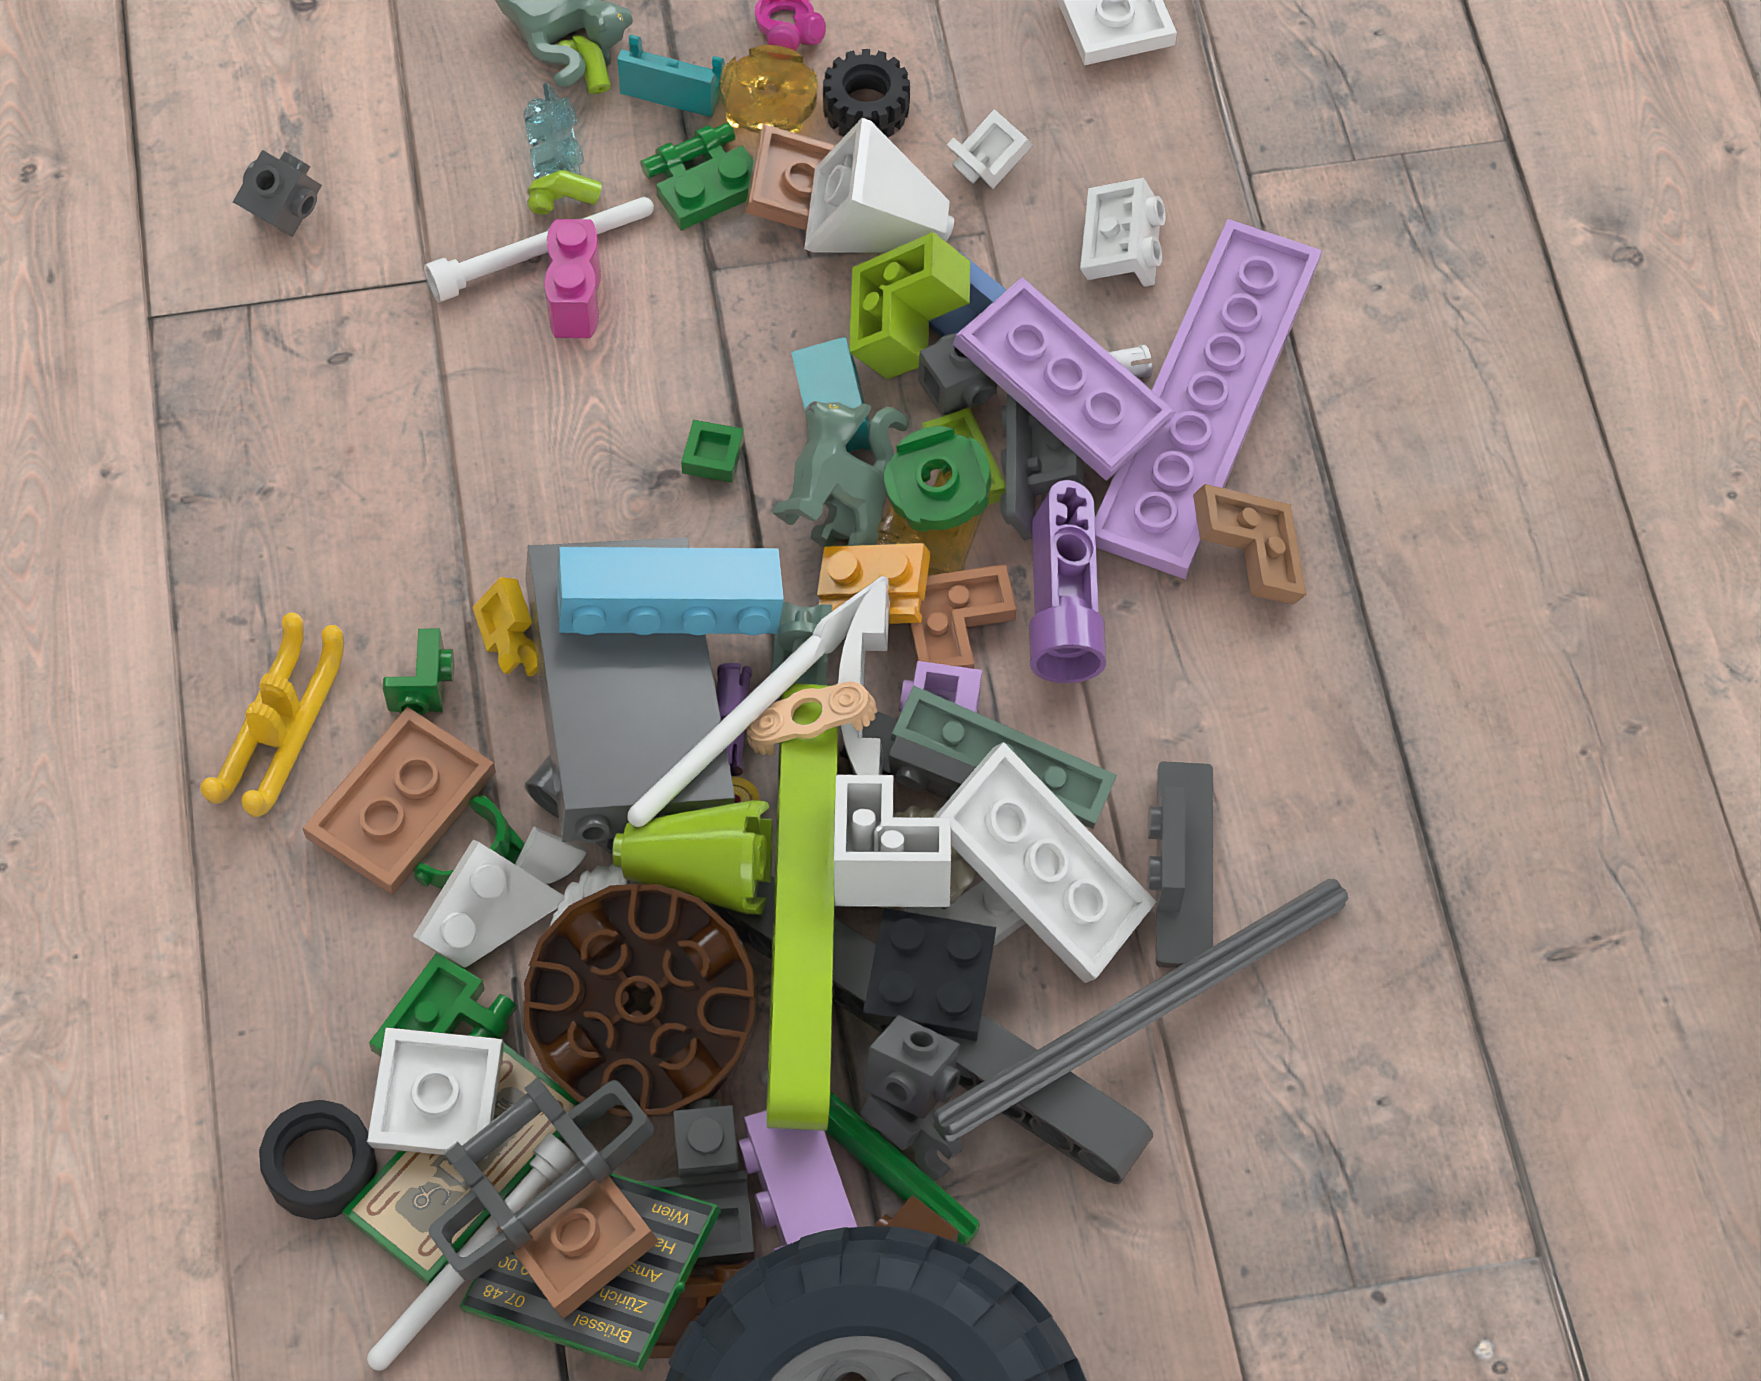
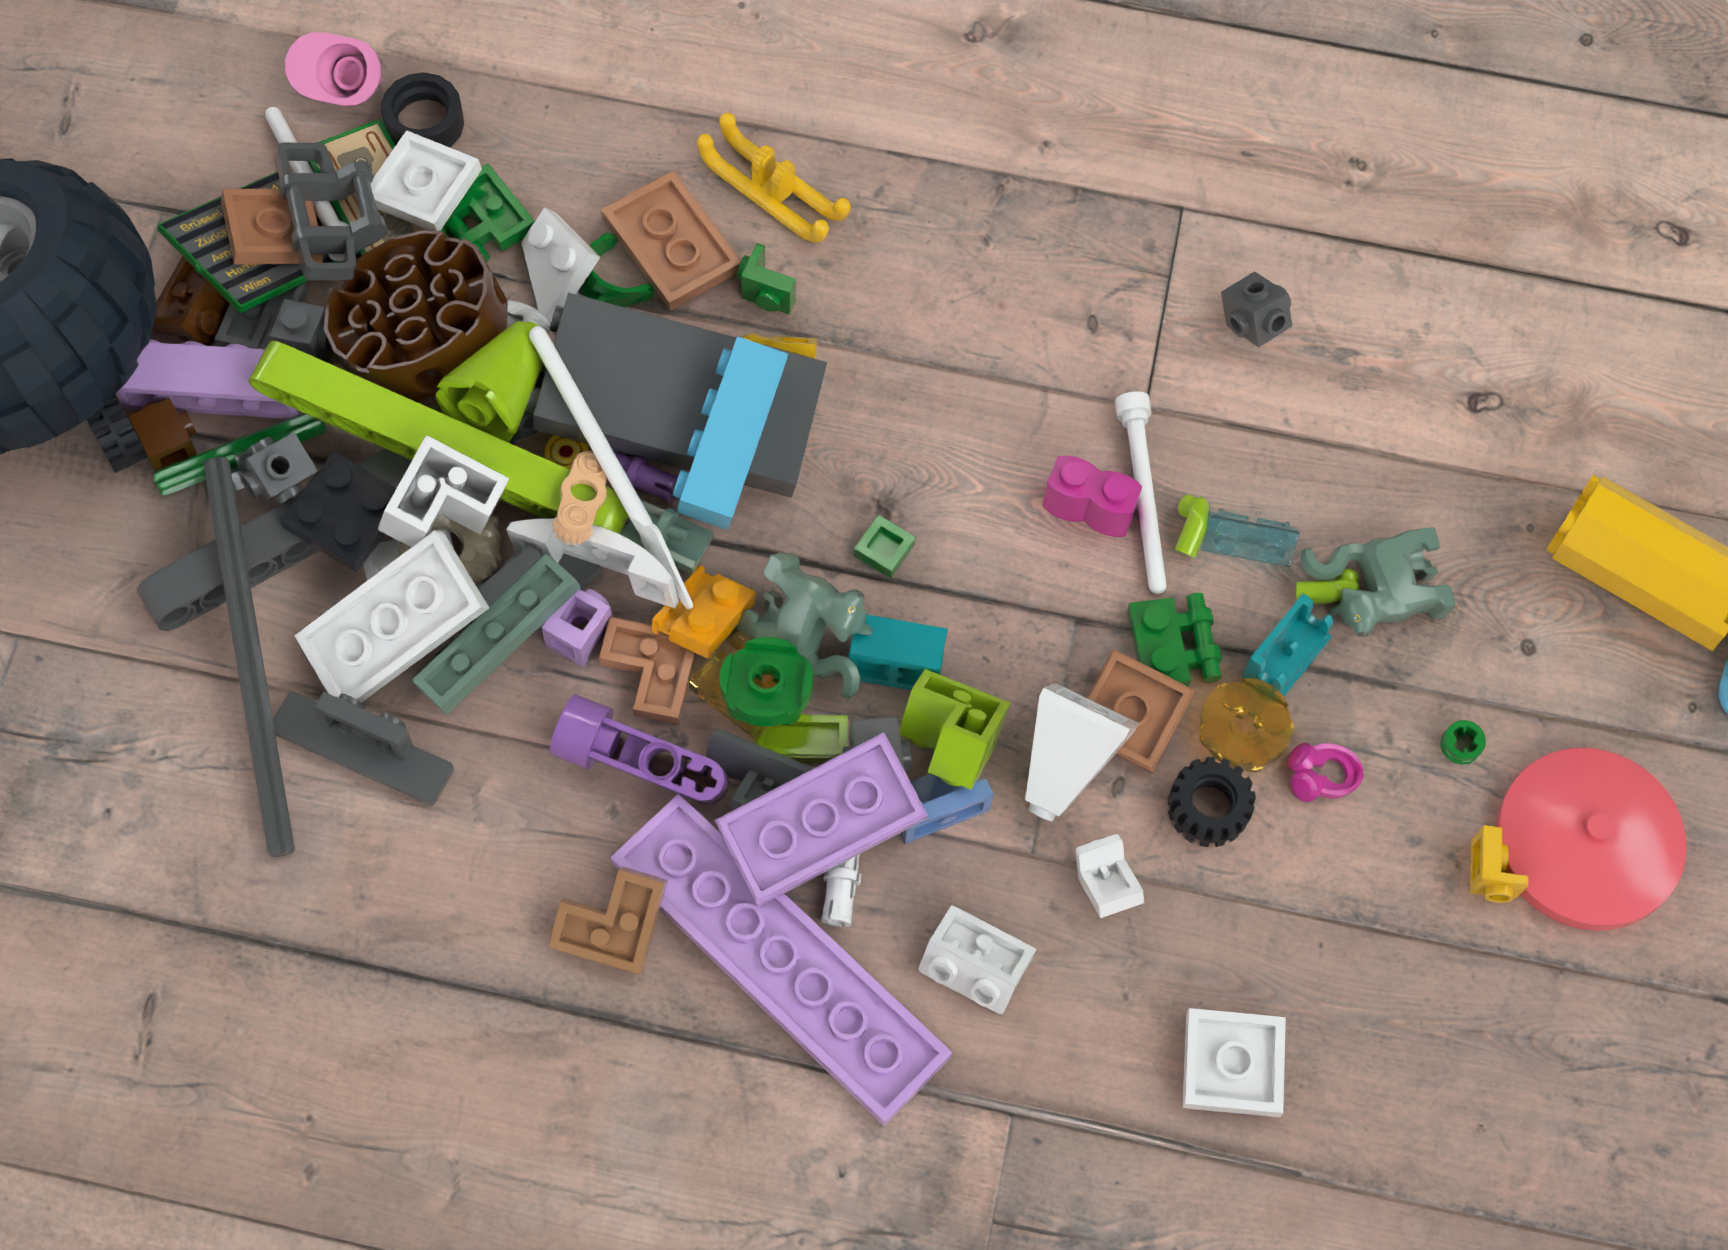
camera: 110 degrees right, 5 degrees up
(297, 1281) = (333, 68): none -> bright pink piece

